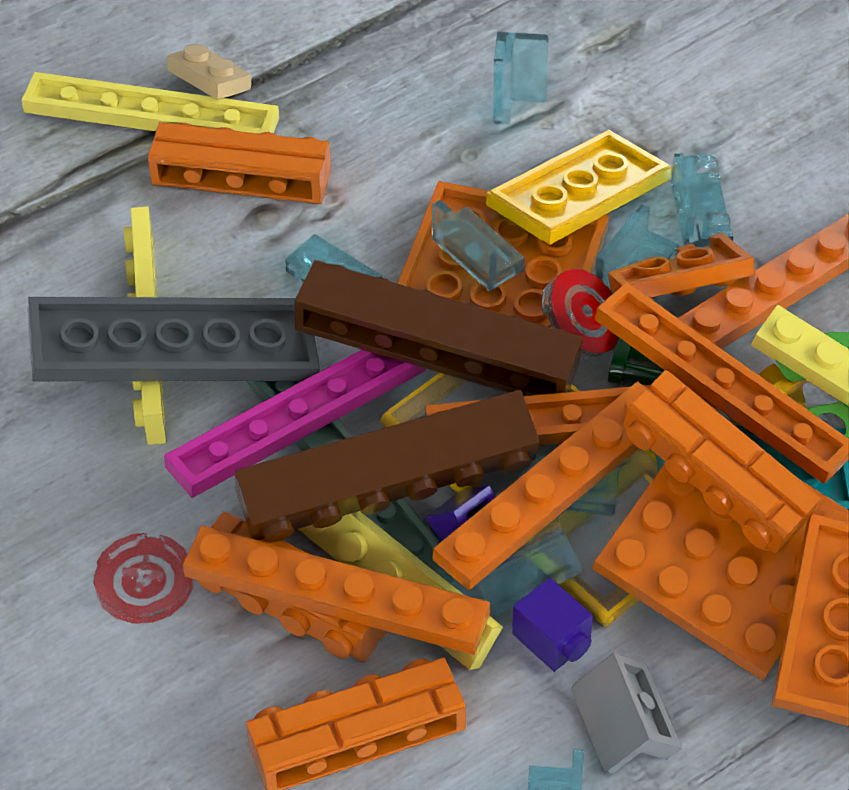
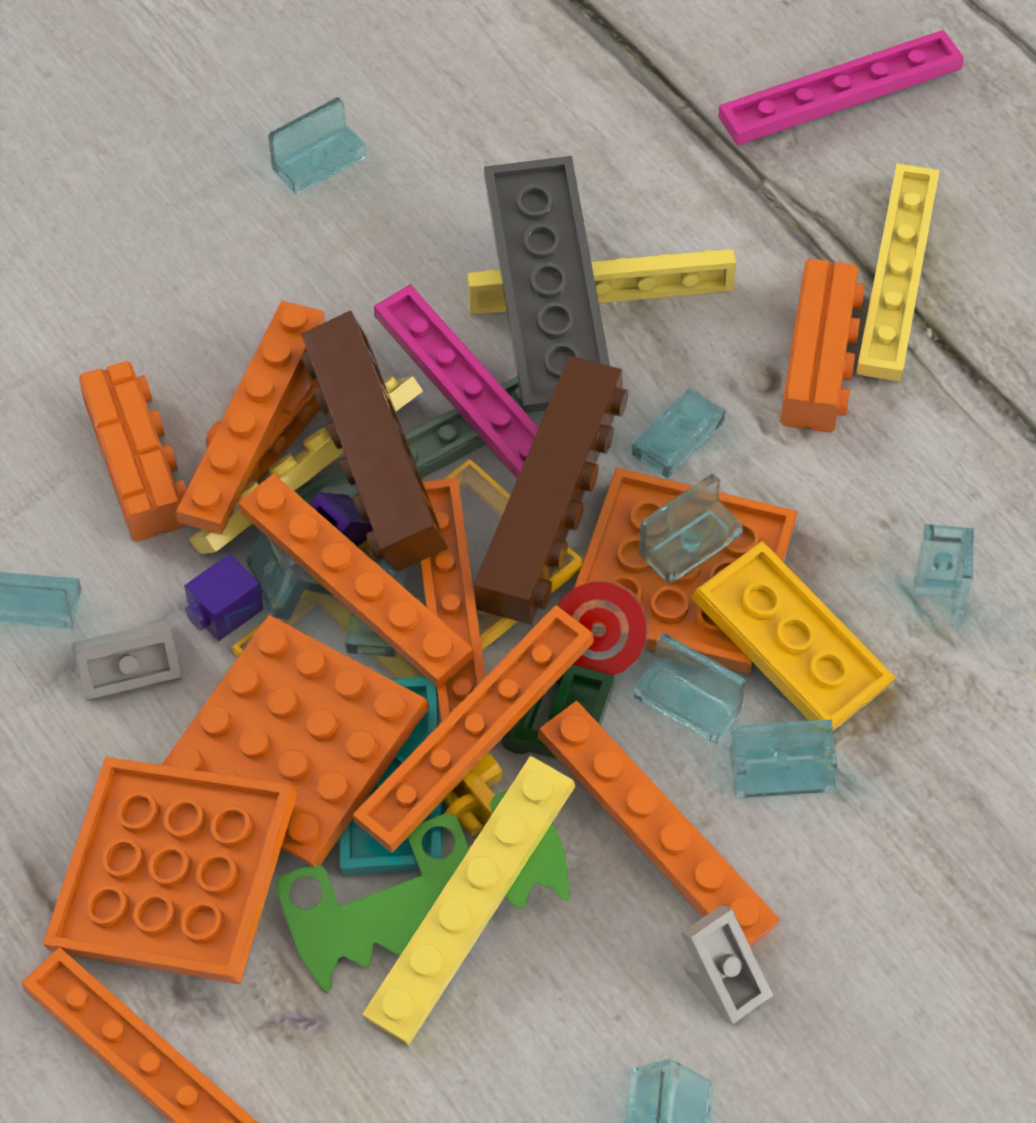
camera: 90 degrees right, 5 degrees up
(142, 578) = (314, 288): clear tile -> none
(208, 71) = (953, 312): tan plate -> none
(716, 264) = (658, 729): orange wing -> none
(720, 462) = (347, 699): orange brick -> none

